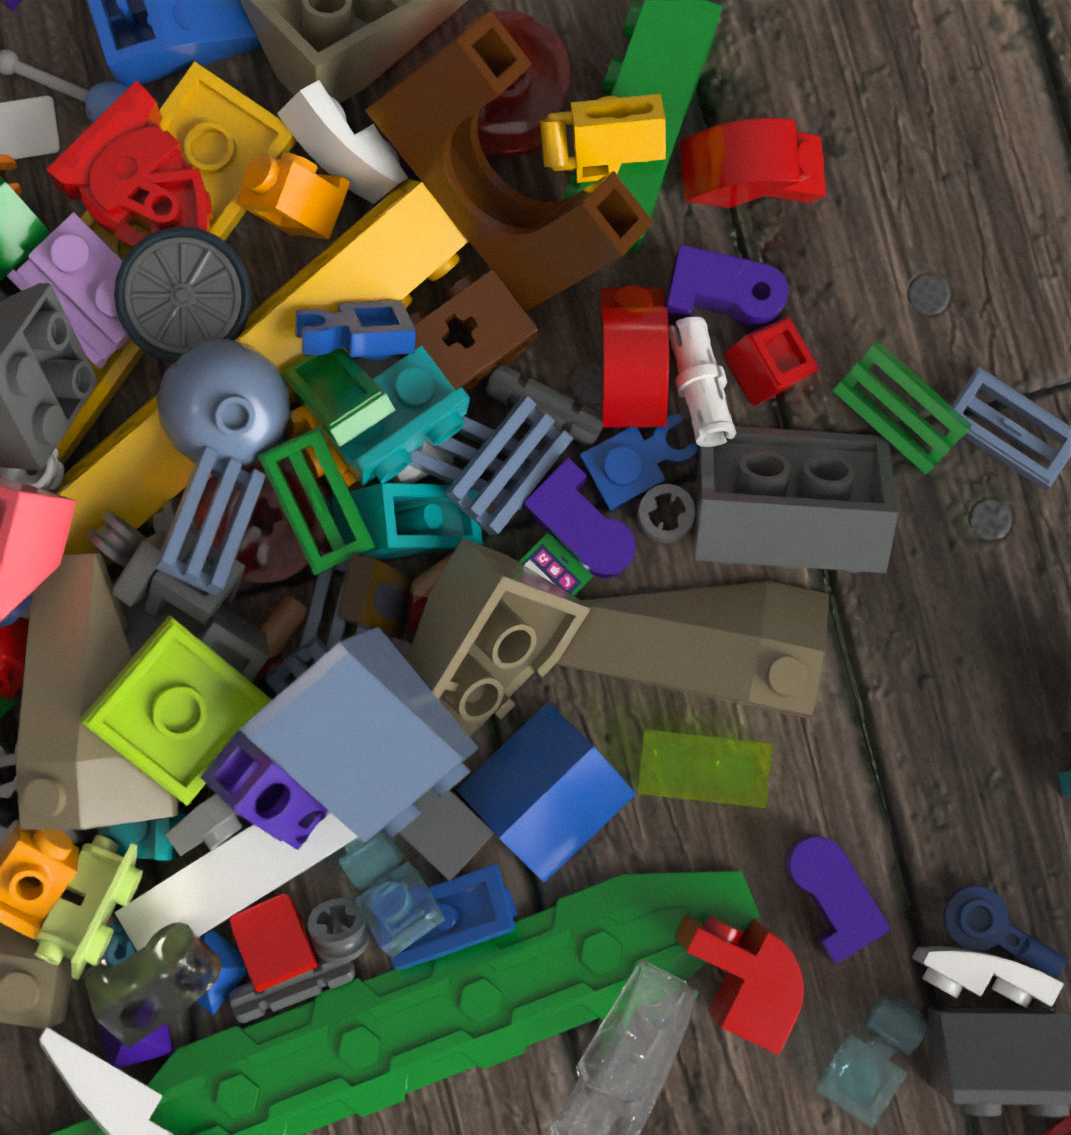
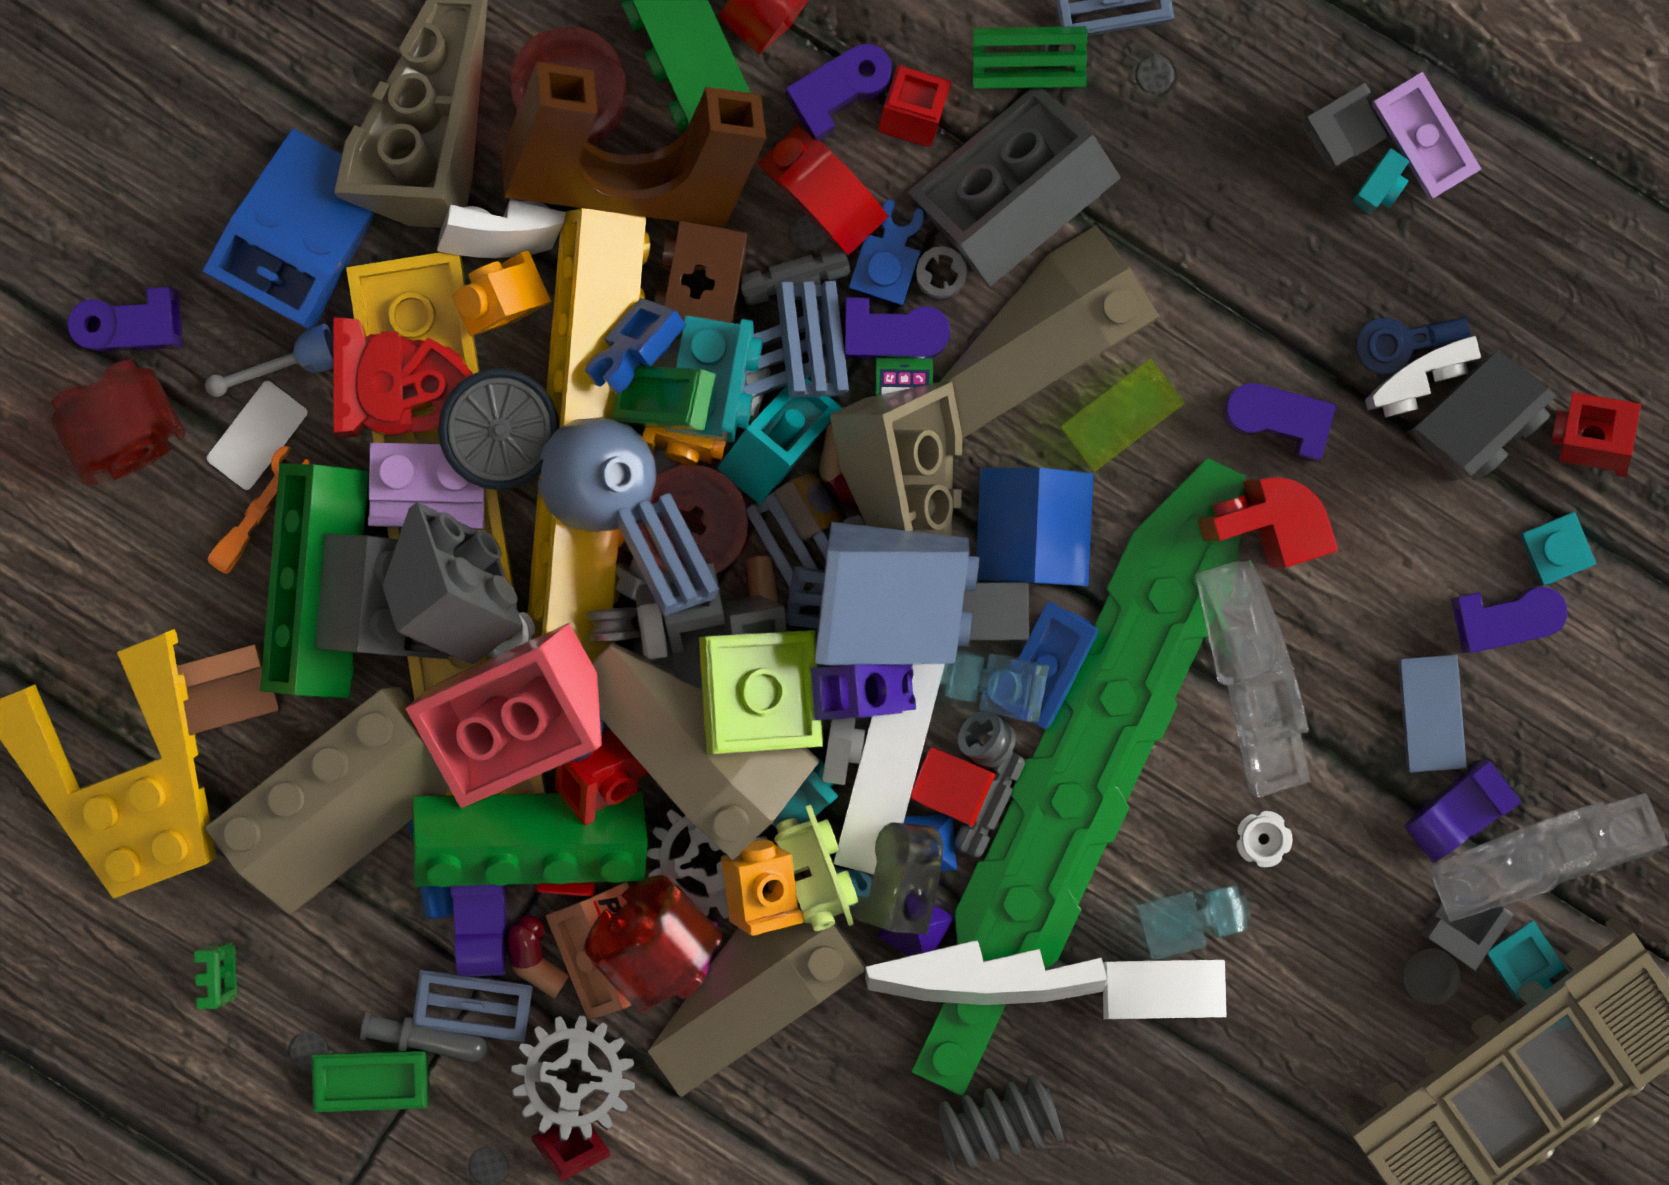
camera: 40 degrees left, 5 degrees up
(341, 551) = (672, 461): green tile -> none
(605, 134) = (672, 64): yellow piece -> none
(701, 382) = (883, 165): white pin -> none
(862, 1074) = (1406, 514): clear light blue plate -> none

